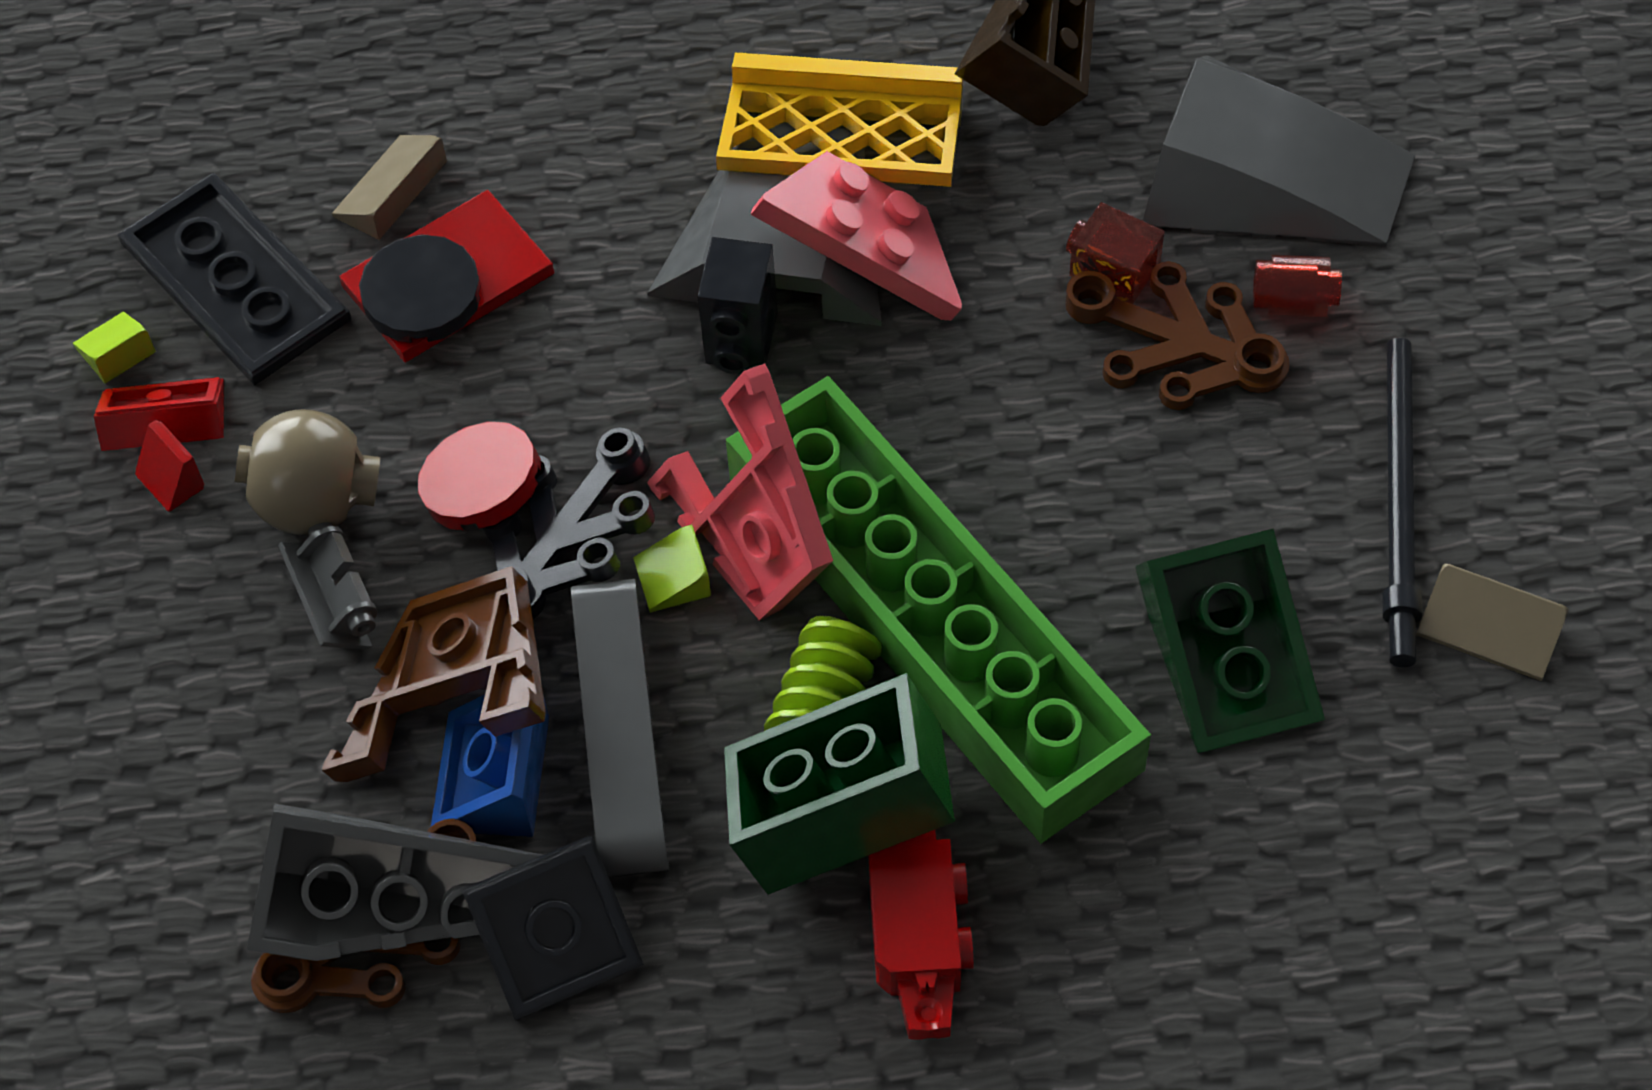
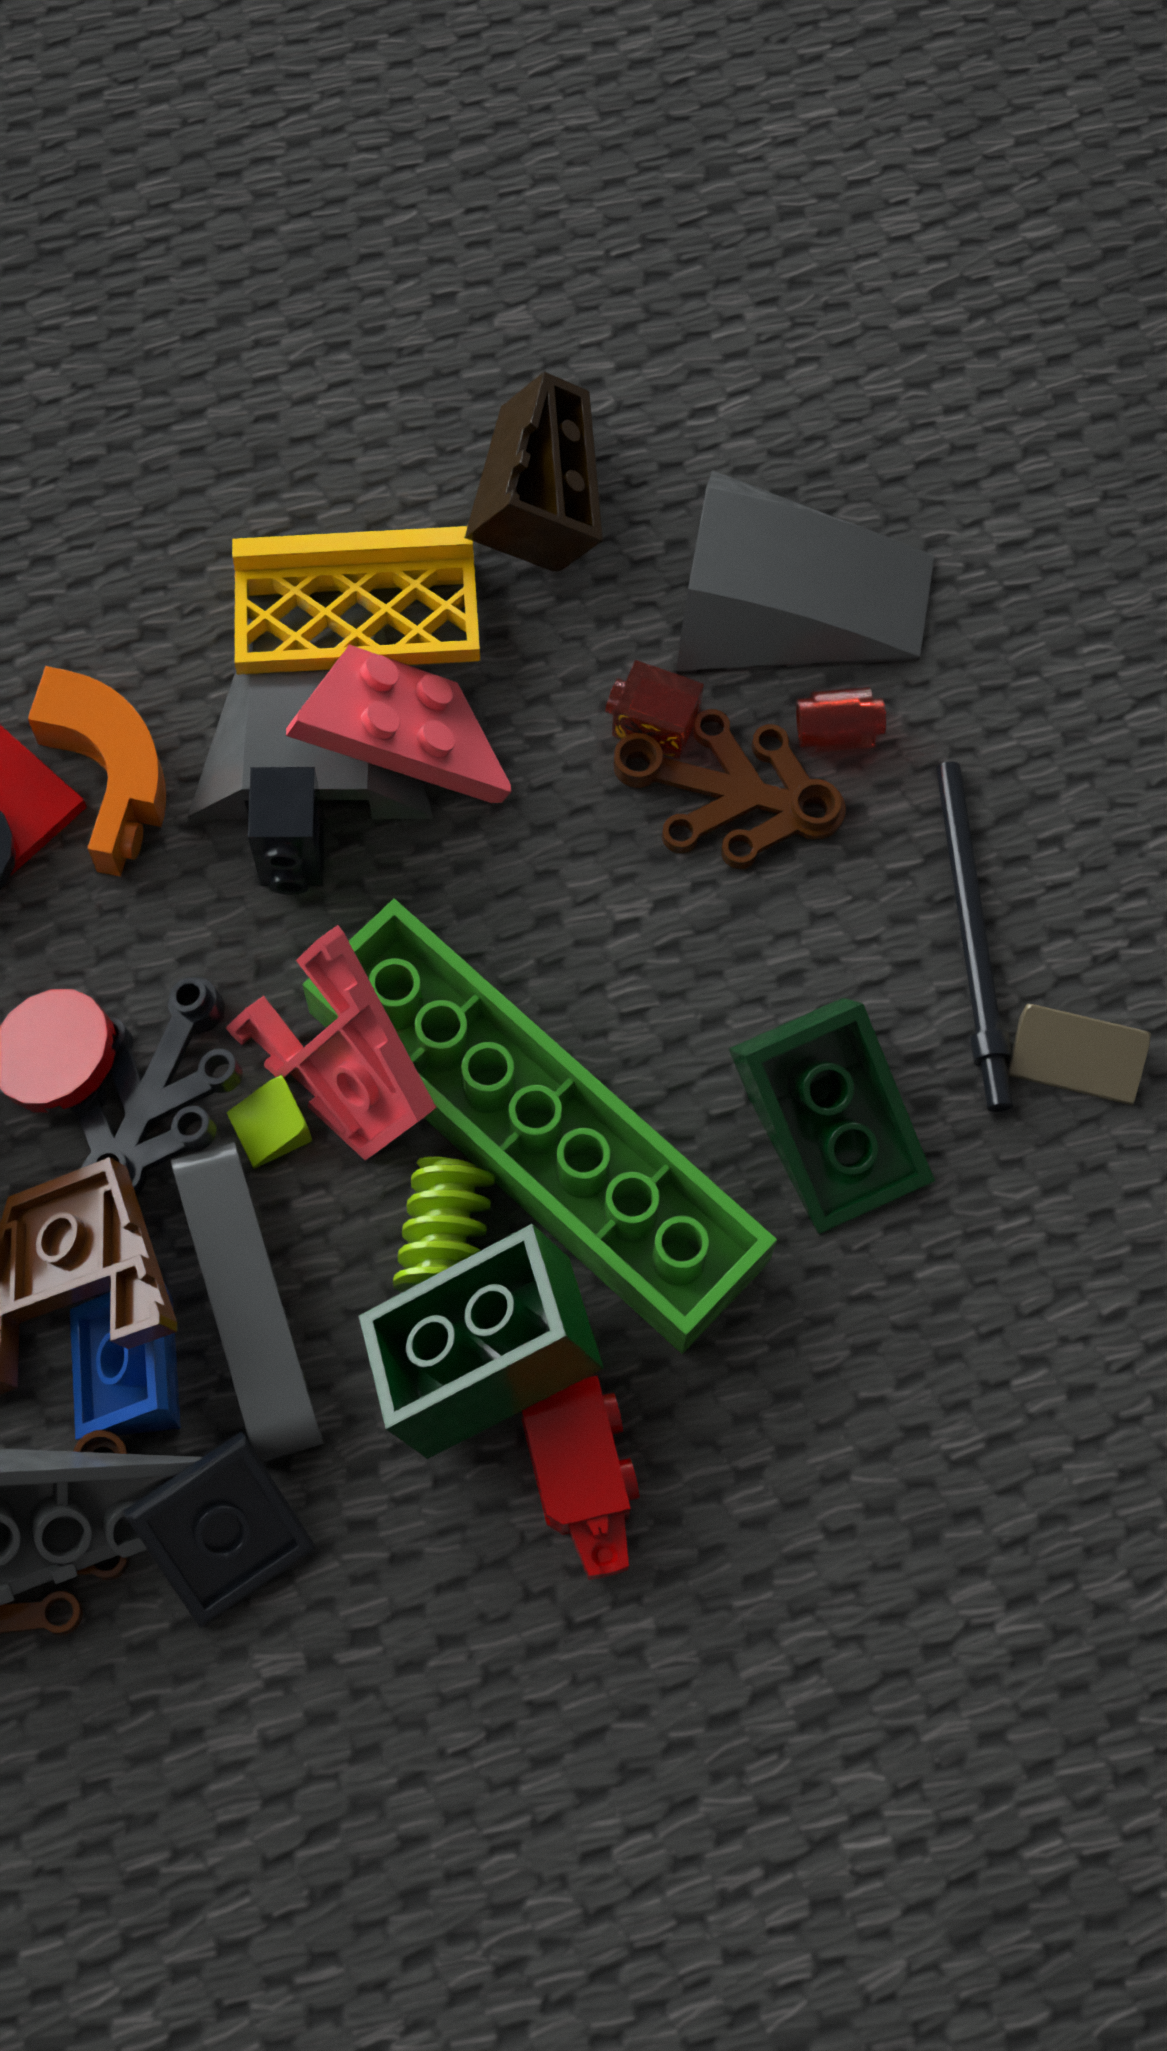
camera: 15 degrees left, 10 degrees up
(584, 202) = (98, 722): none -> orange arch

